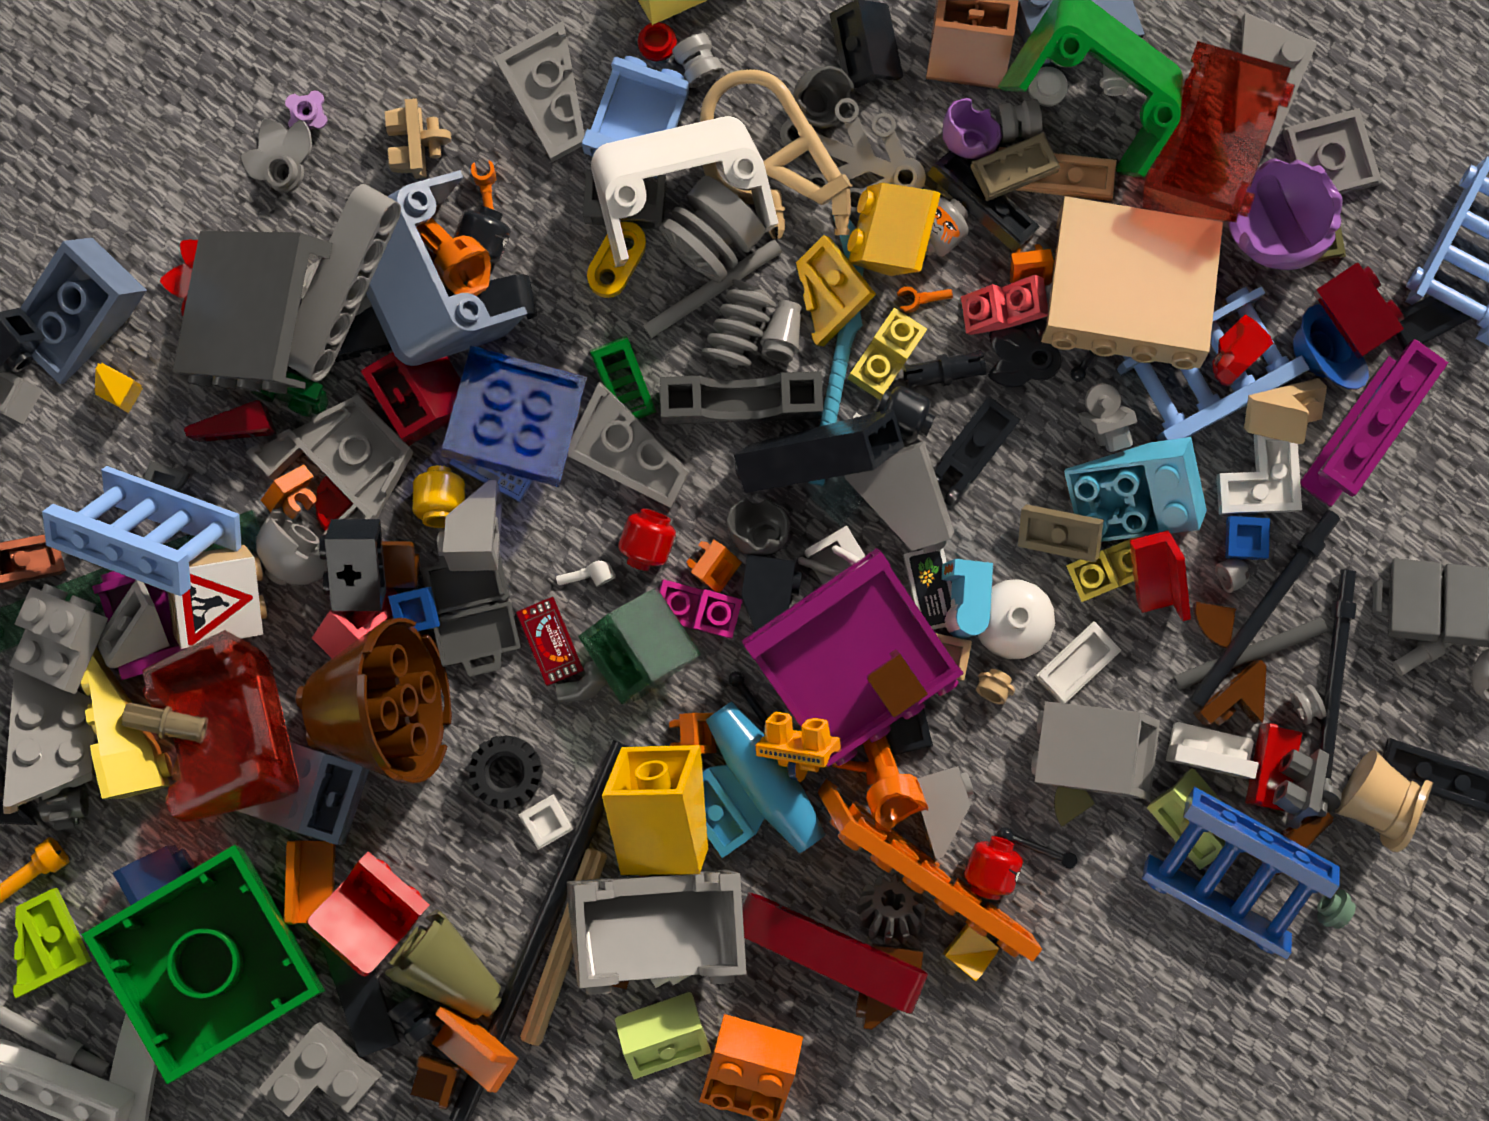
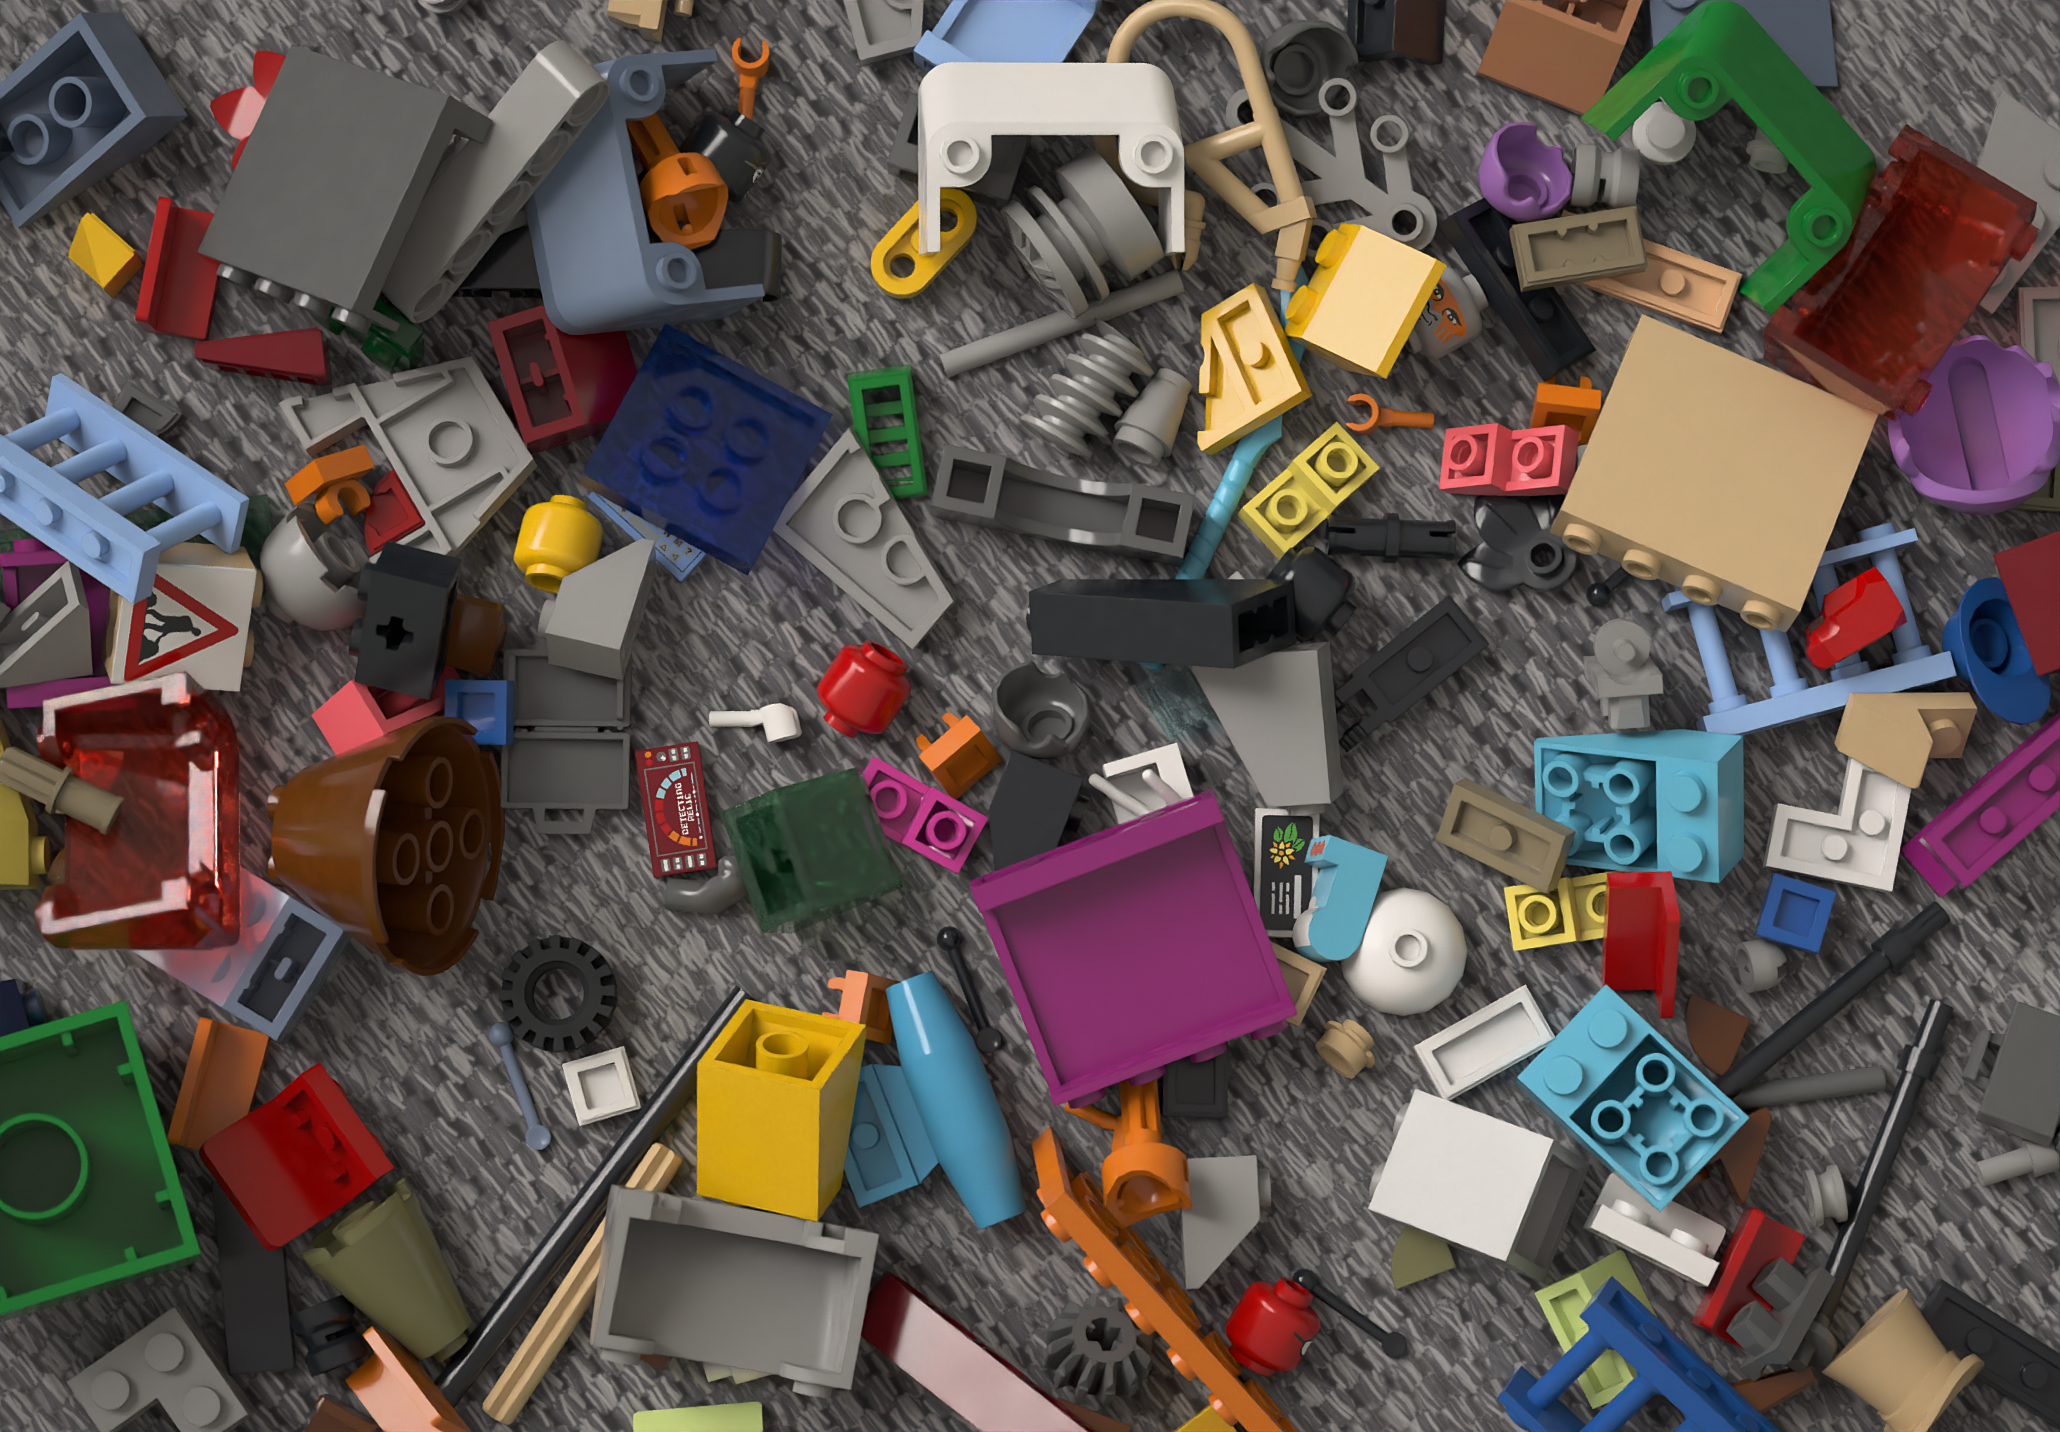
camera: 15 degrees right, 0 degrees up
(165, 394) = (178, 281): none -> red panel
(513, 861) = (537, 1135): none -> sand blue hinge
(796, 749) = (1014, 1068): light orange hips -> none
(896, 684) = (1189, 1005): reddish brown panel -> none
(1178, 675) = (1631, 1099): none -> medium azure slope

